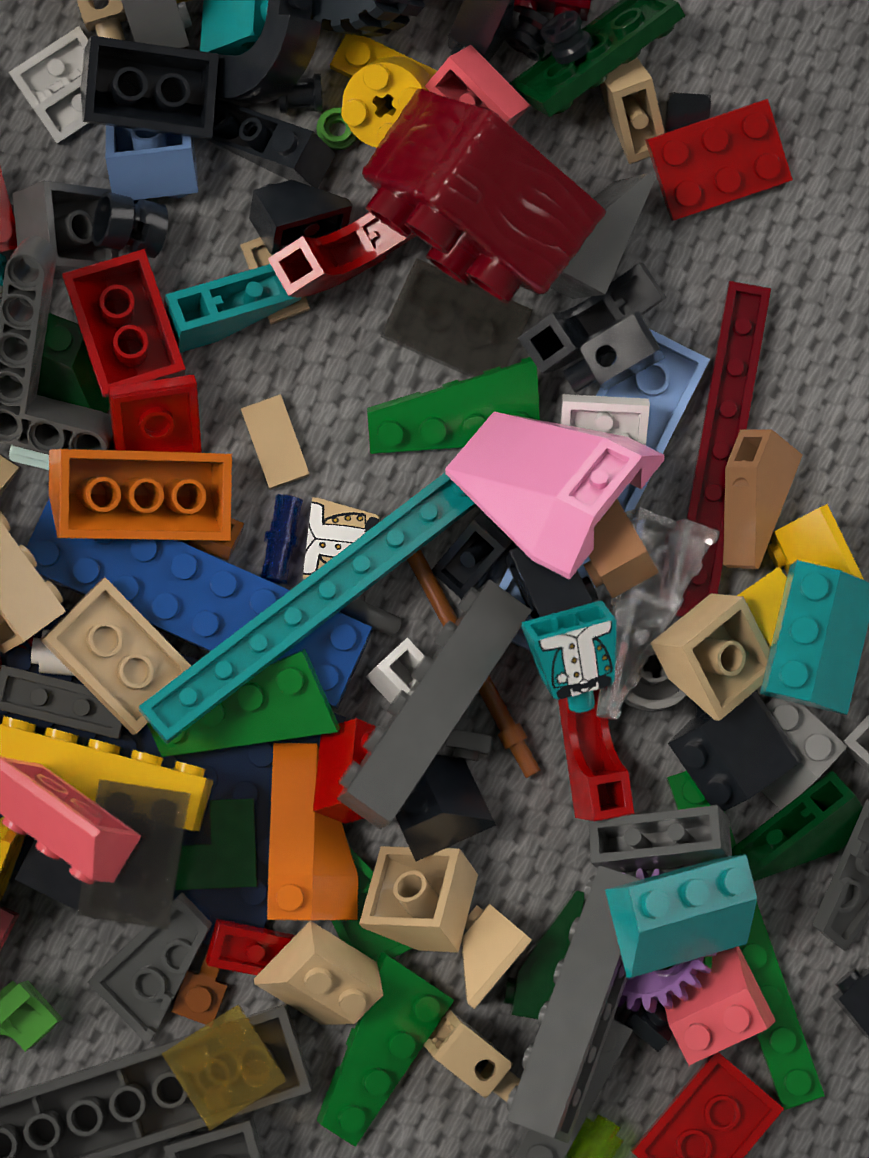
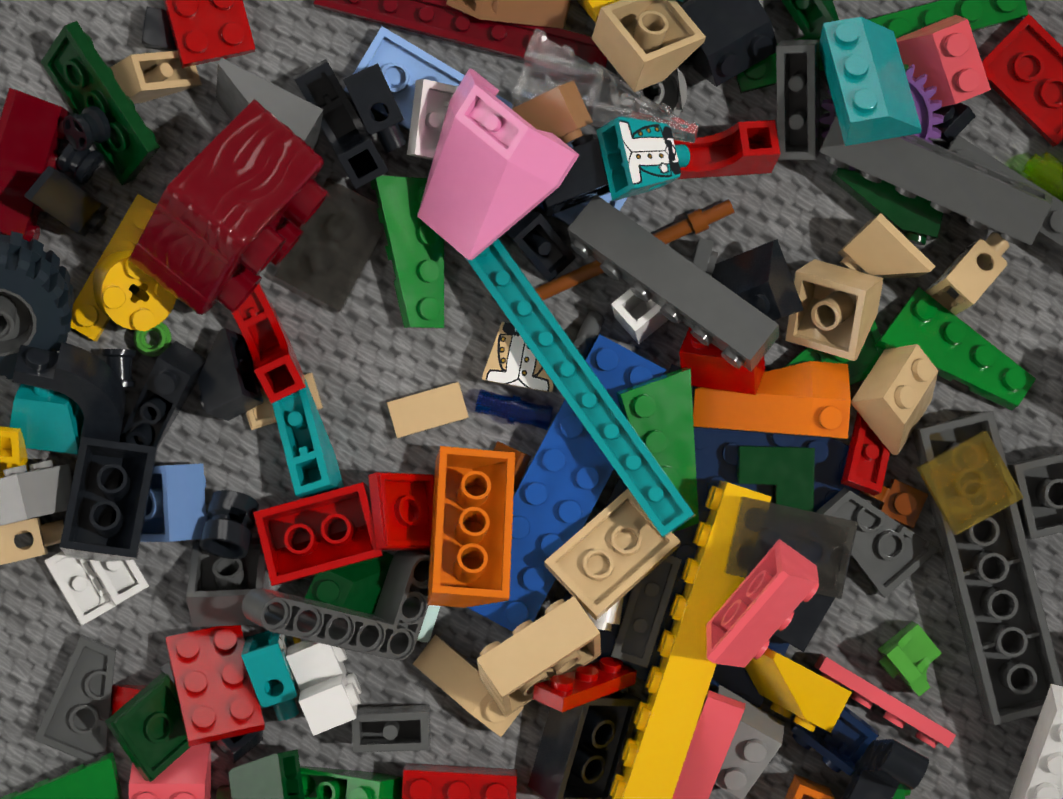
camera: 85 degrees left, 5 degrees up
(476, 82) = (129, 209): coral brick -> none

